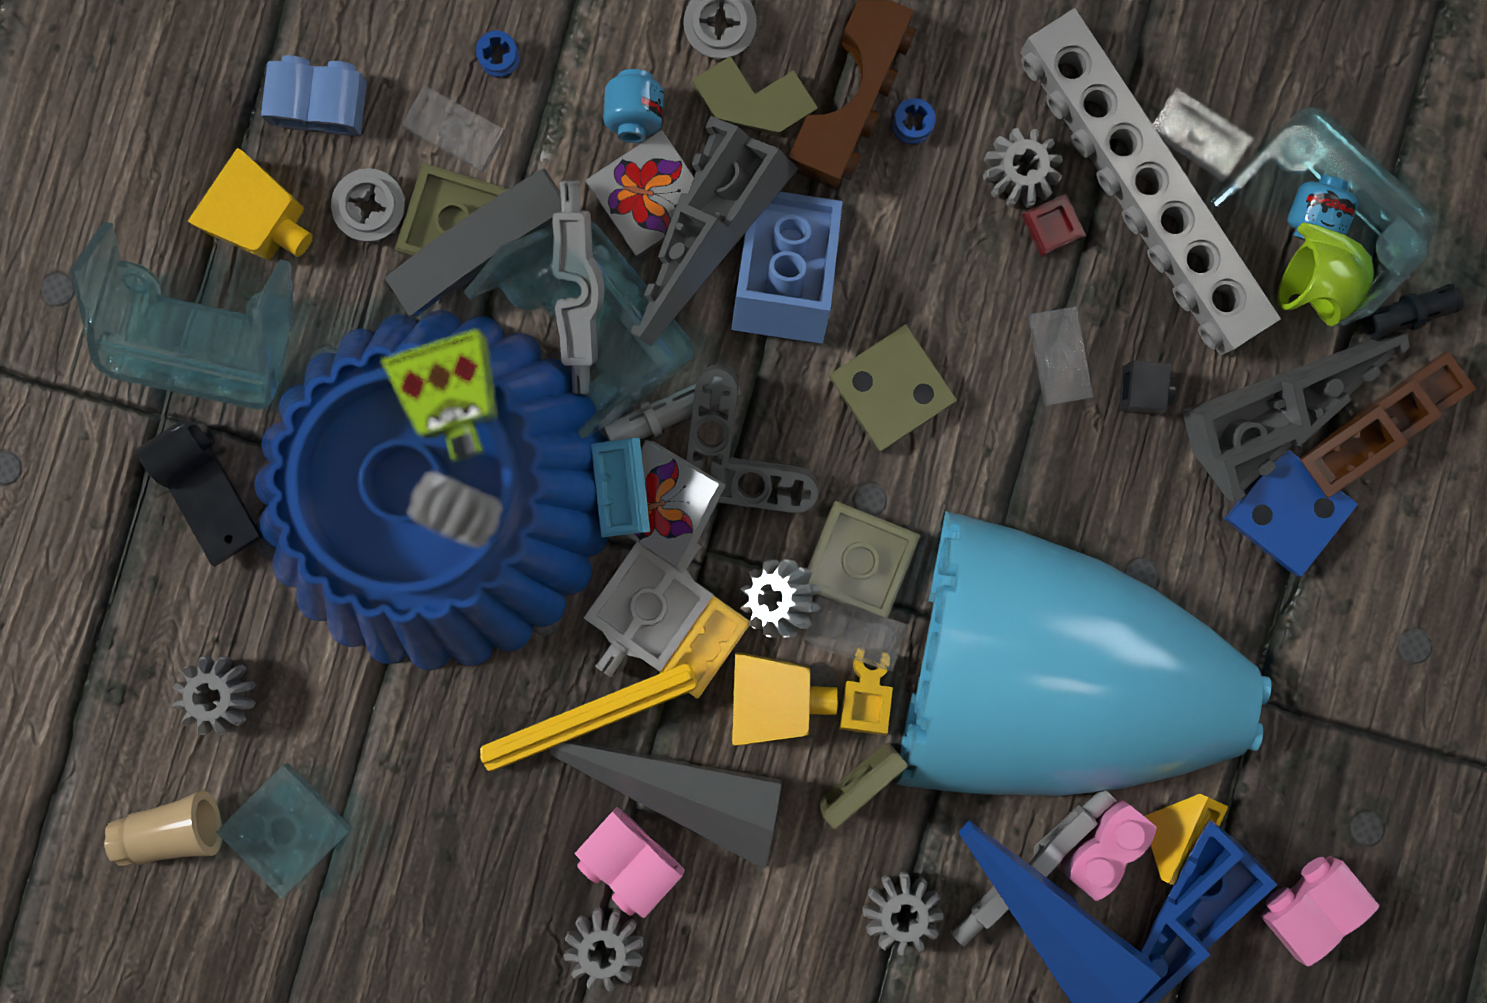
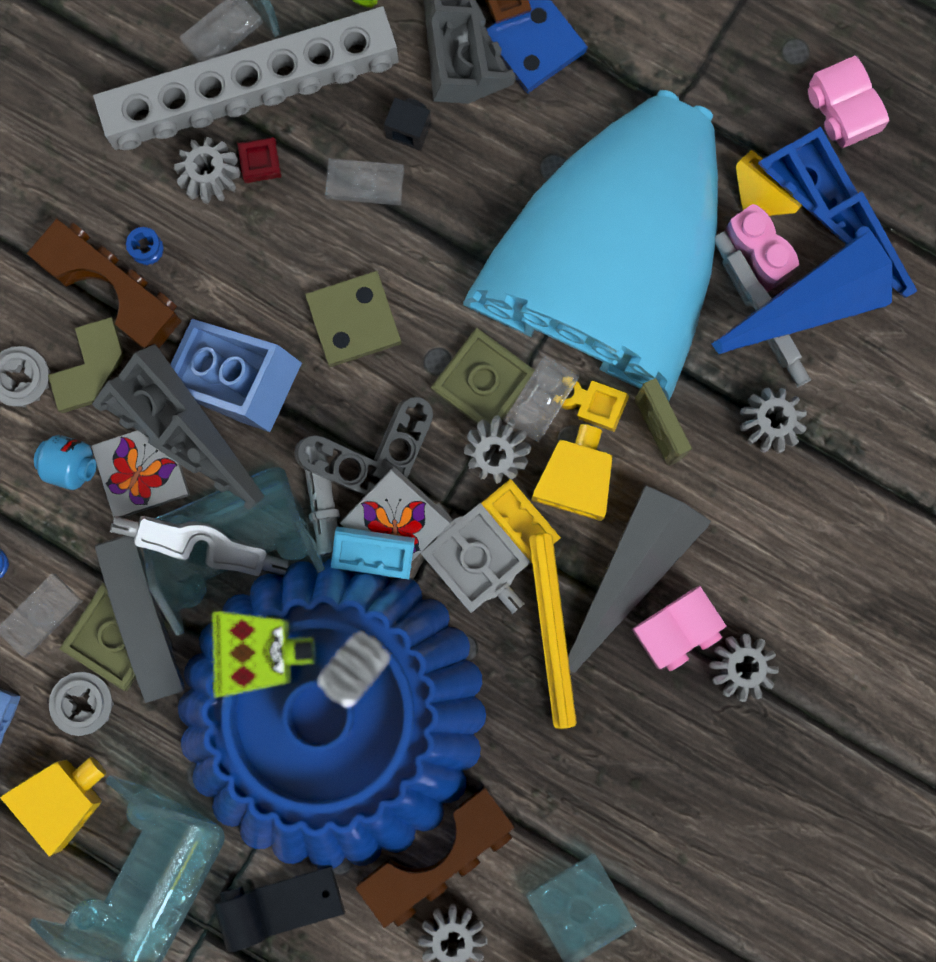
camera: 75 degrees left, 5 degrees down
(255, 617) = (396, 888): none -> reddish brown arch

